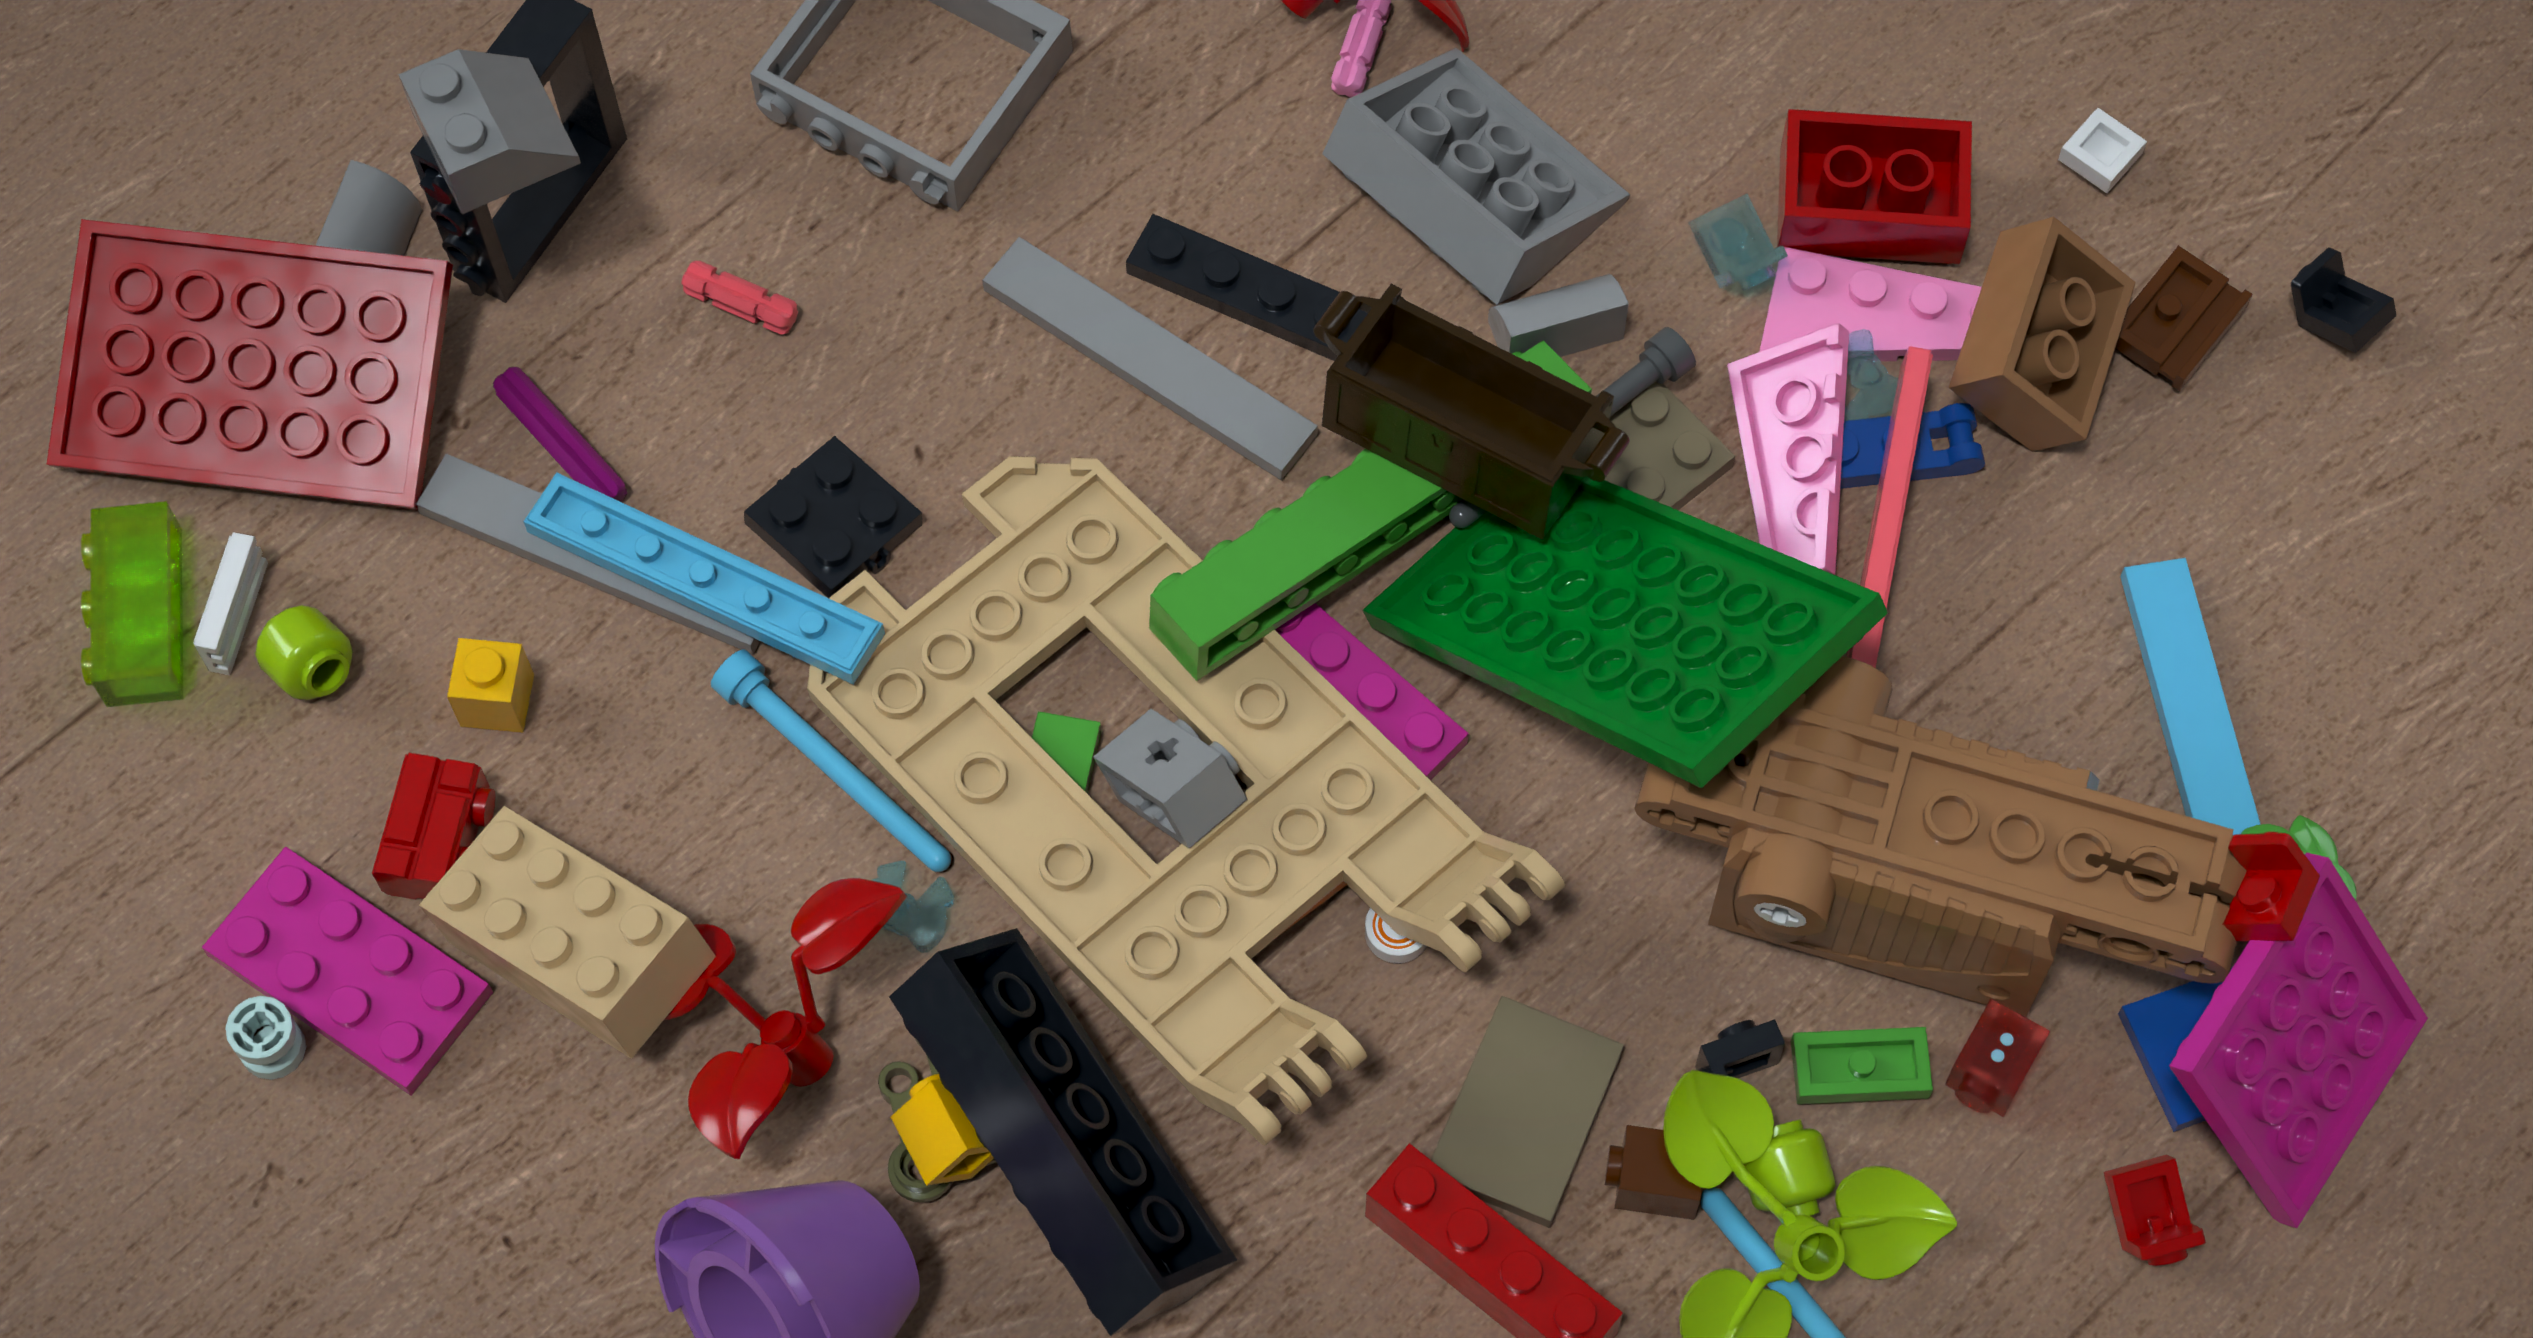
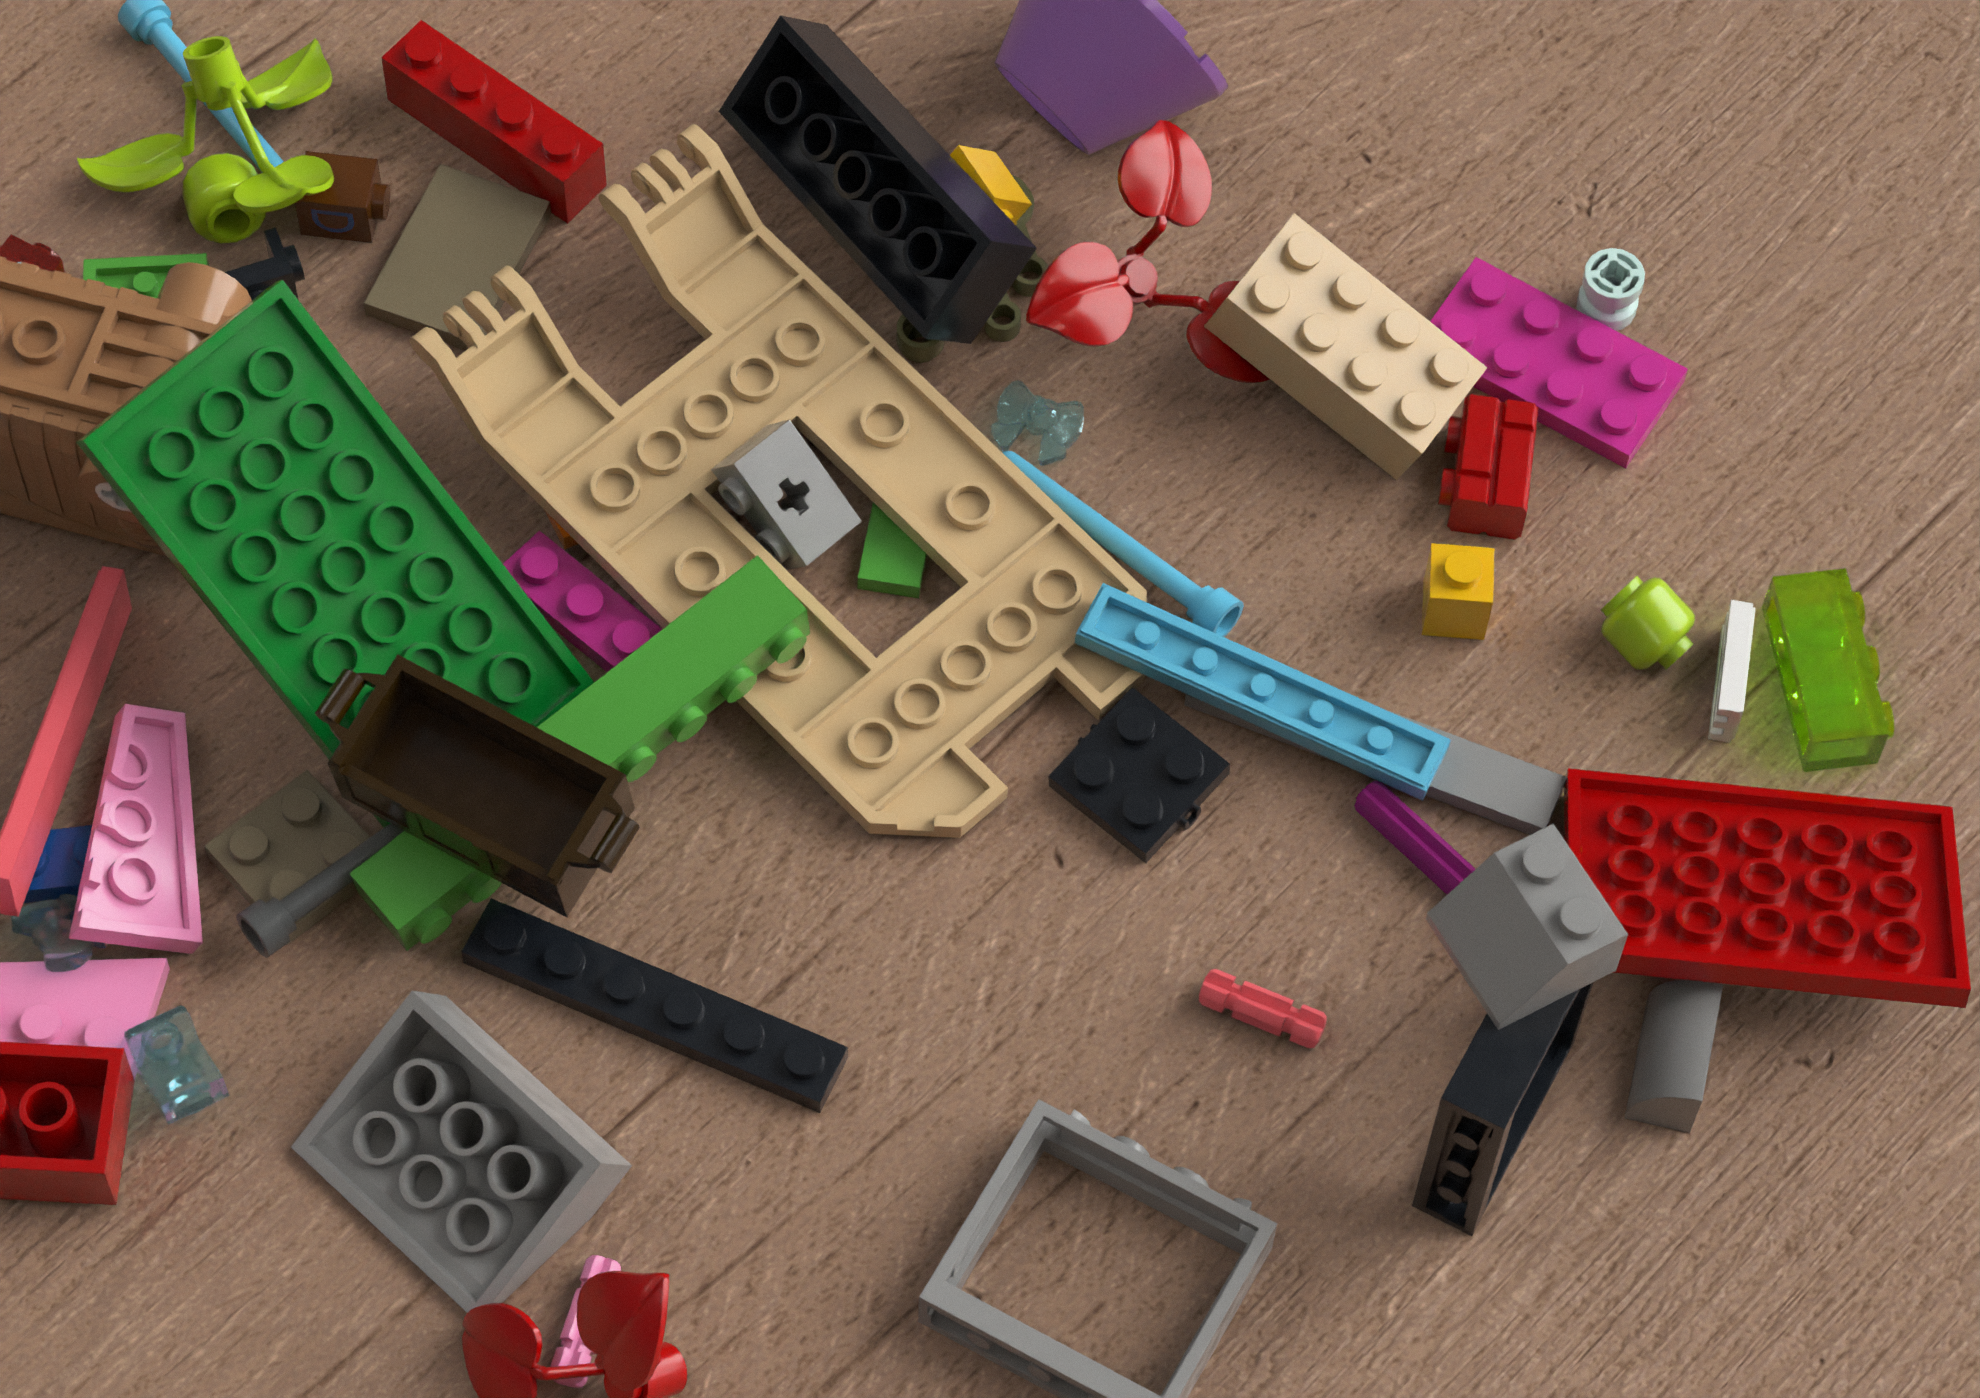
camera: 175 degrees right, 5 degrees down
(1150, 358) = (822, 953): light grey tile -> none
(1565, 318) = (367, 981): light grey brick -> none

